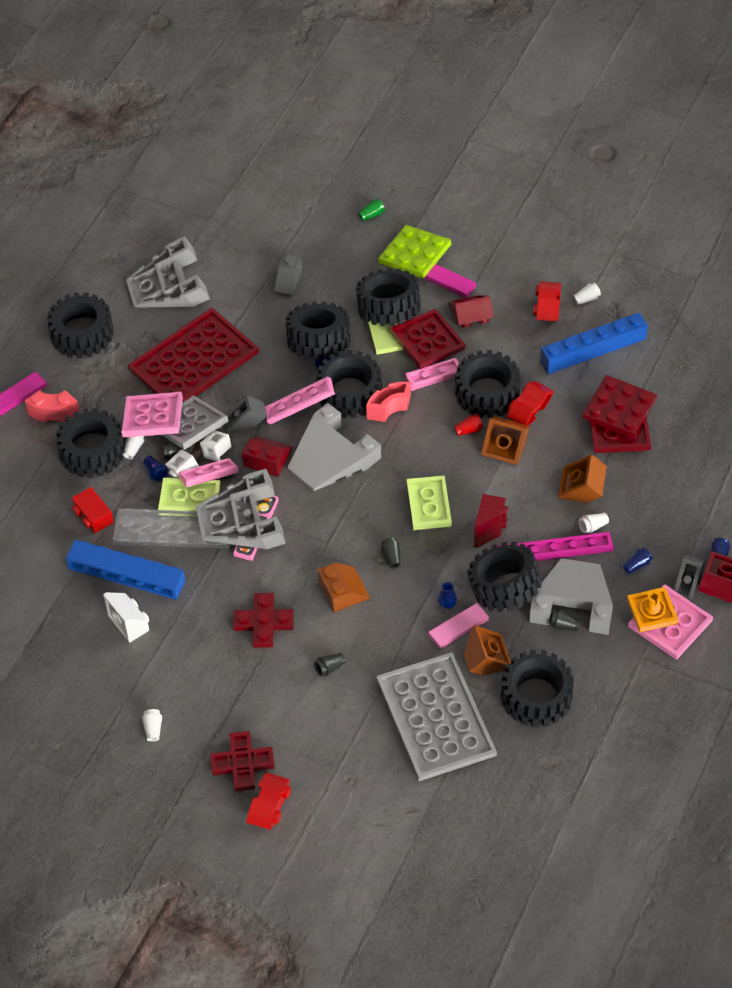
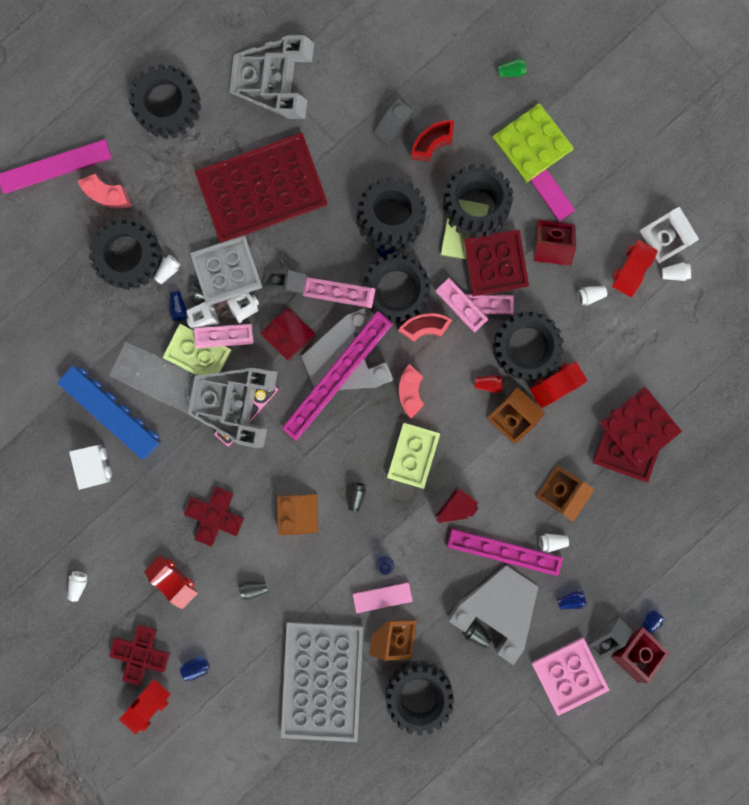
camera: 25 degrees right, 35 degrees up
(92, 510) = (101, 332): red brick -> none
(152, 414) = (192, 251): bright pink plate -> none
(246, 683) = (171, 582): none -> red brick
(303, 751) = (194, 669): none -> clear blue brick
(327, 463) = (337, 375): none -> dark pink tile
(328, 273) = (431, 139): none -> red brick
(400, 454) = (409, 392): none -> coral brick
(418, 378) = (461, 305): none -> bright pink tile
(499, 562) = (428, 559): black tyre -> none
(521, 334) = (588, 295): none -> white cone
(565, 269) = (669, 234): none -> white slope
(593, 343) = (654, 338): blue brick -> none
(652, 609) = (558, 666): light orange plate -> none

